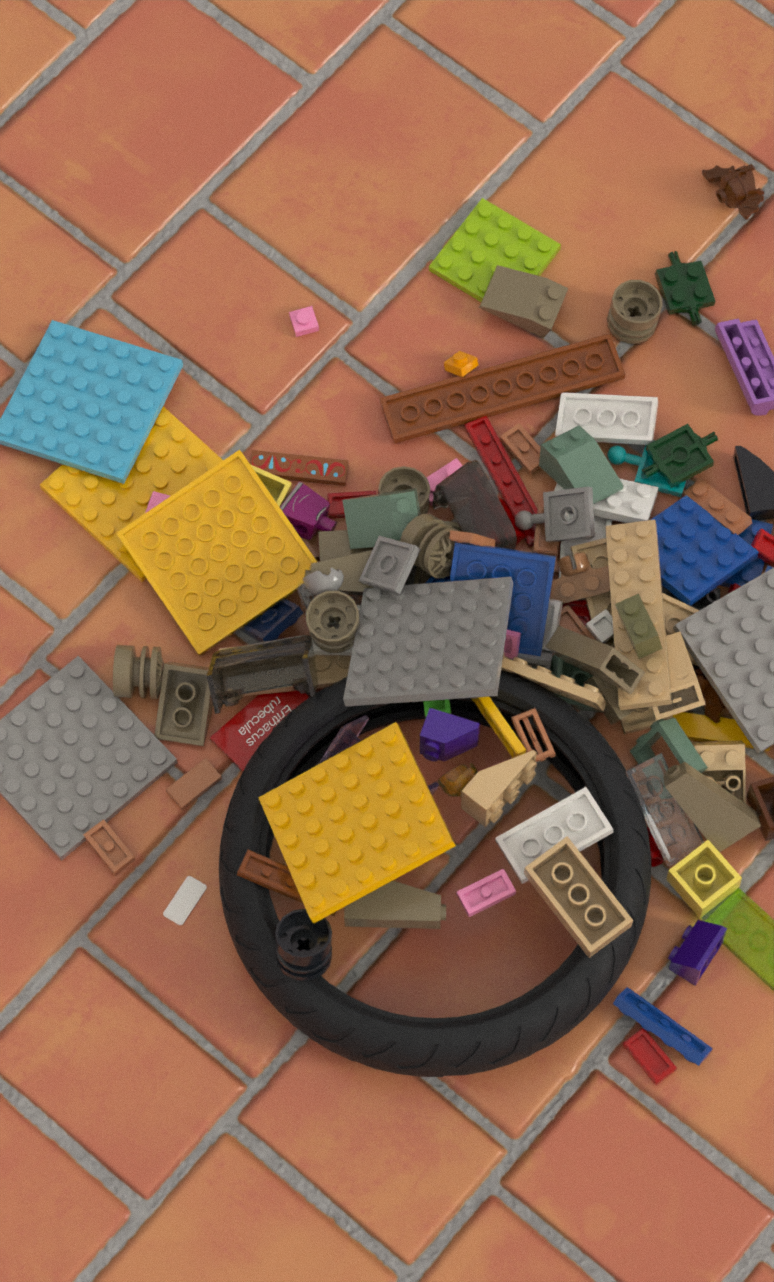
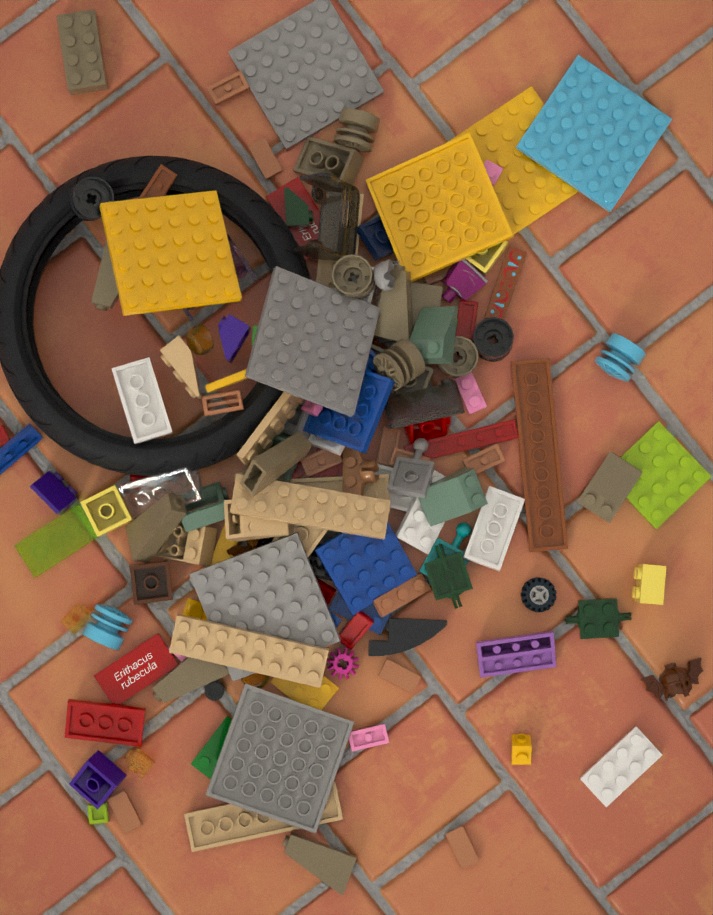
camera: 95 degrees right, 20 degrees up
(95, 1042) = (82, 52): none -> dark tan brick
(184, 900) = (178, 136): white sticker -> none
(255, 724) = (296, 211): none -> dark green slope
(304, 321) = (631, 314): bright pink plate -> none
(363, 452) = (491, 328): none -> black wheel
(367, 318) = (621, 355): none -> medium azure wheel
(389, 564) = (388, 327): light grey tile -> none
(461, 363) = (566, 427): light orange plate -> none
(472, 538) = (391, 392): nougat tile -> none
(486, 892) = (110, 341): bright pink plate -> none
(578, 896) = (83, 403): tan brick -> none
(601, 627) = (316, 480): white plate -> none
(629, 234) = (649, 584): none -> light yellow brick
(634, 311) = (591, 572): dark tan wheel -> none
(638, 626) = (291, 500): olive brick -> none
(672, 348) = (544, 596): none -> black wheel

